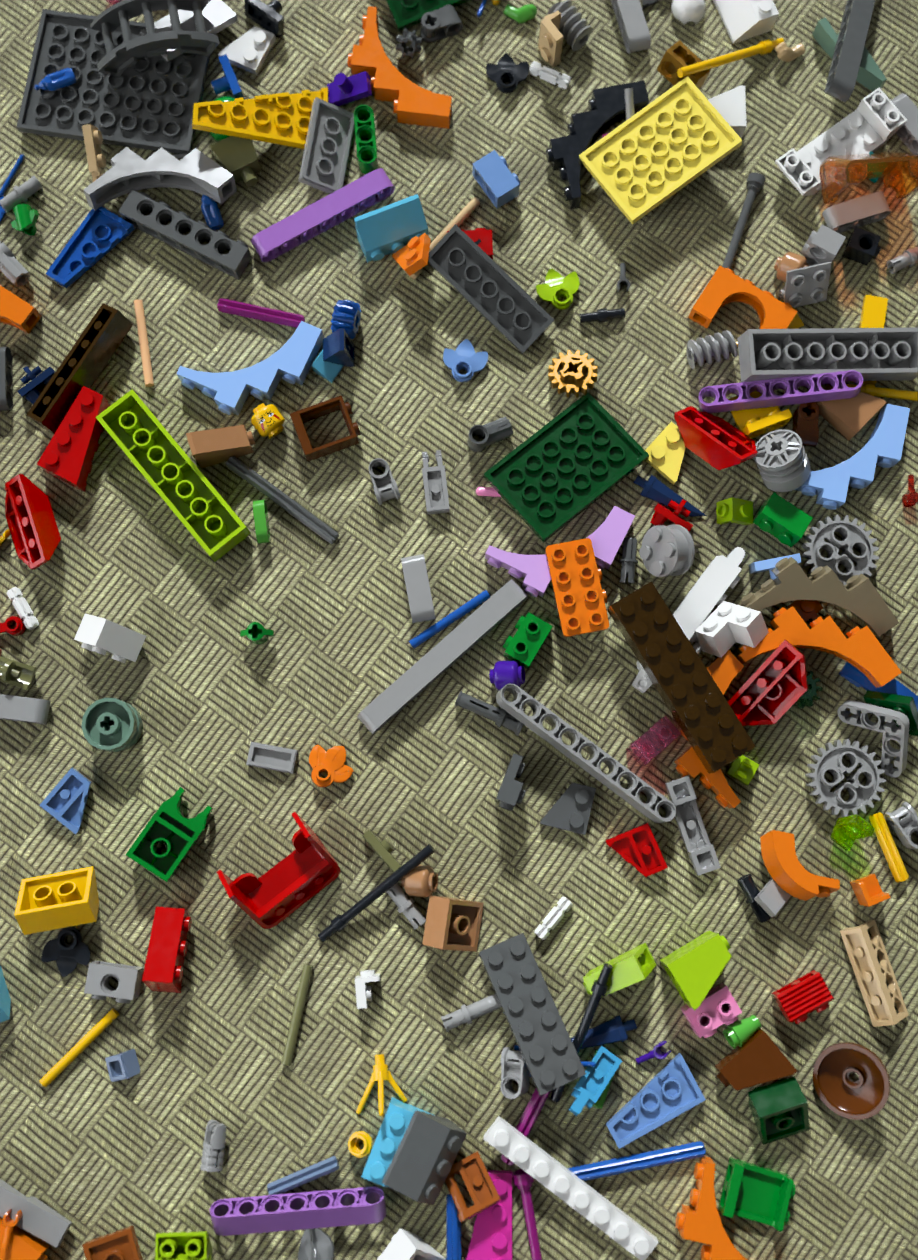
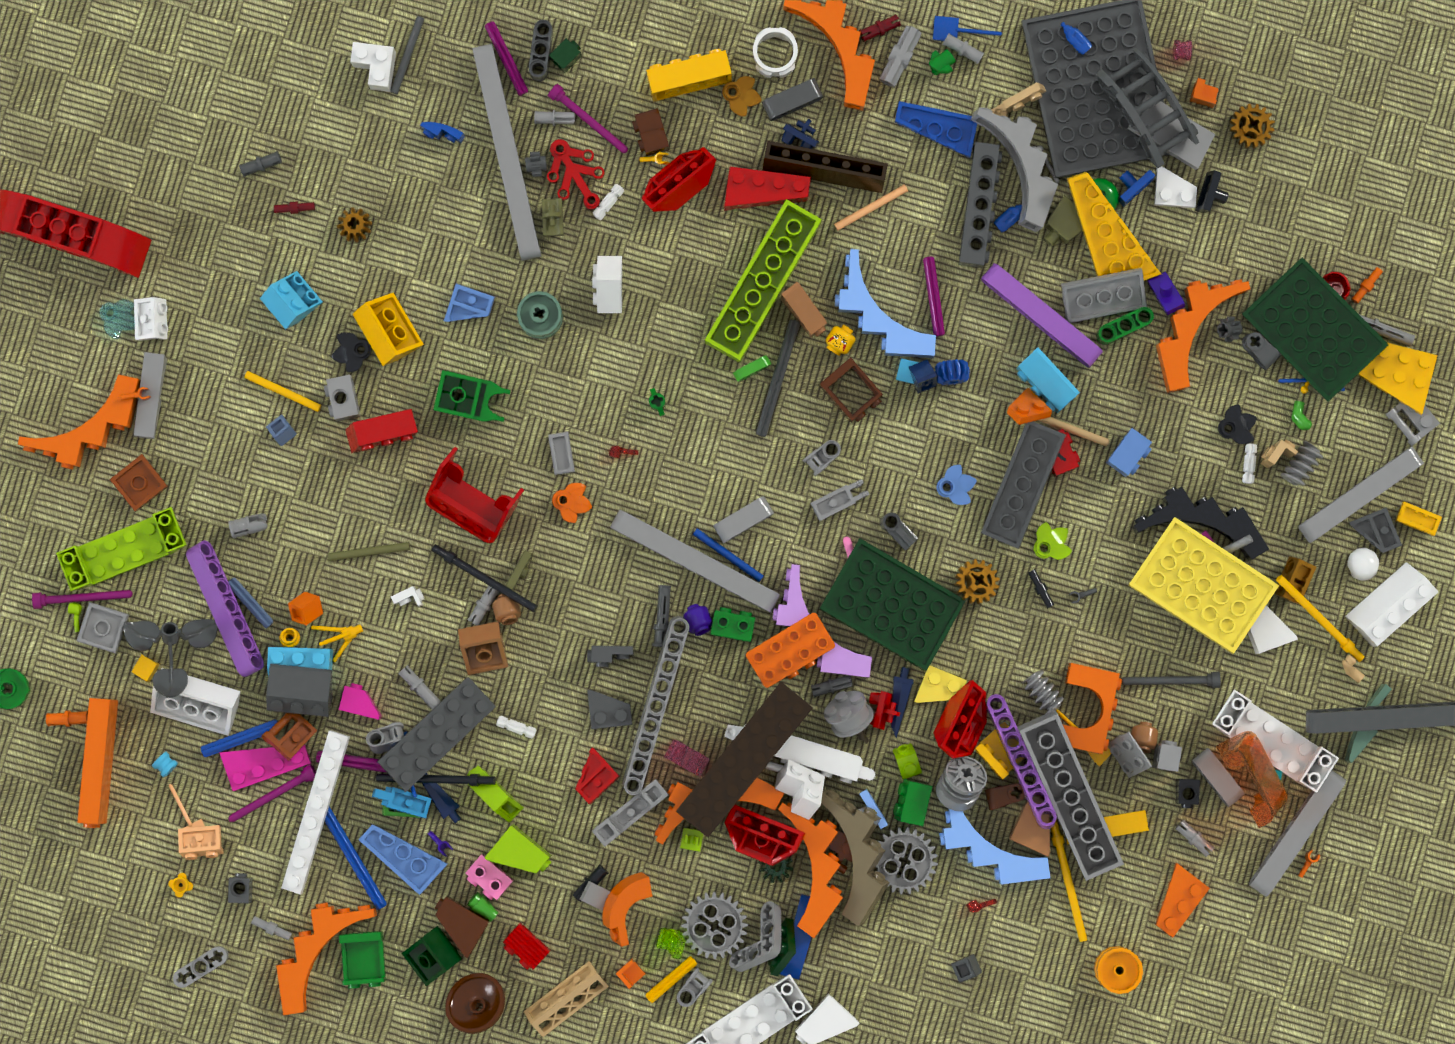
camera: 70 degrees right, 5 degrees up
(292, 697) = (615, 451): none -> clear red hand
(333, 1113) = (305, 608): none -> orange panel
(463, 1089) = (358, 702): none -> dark pink slope

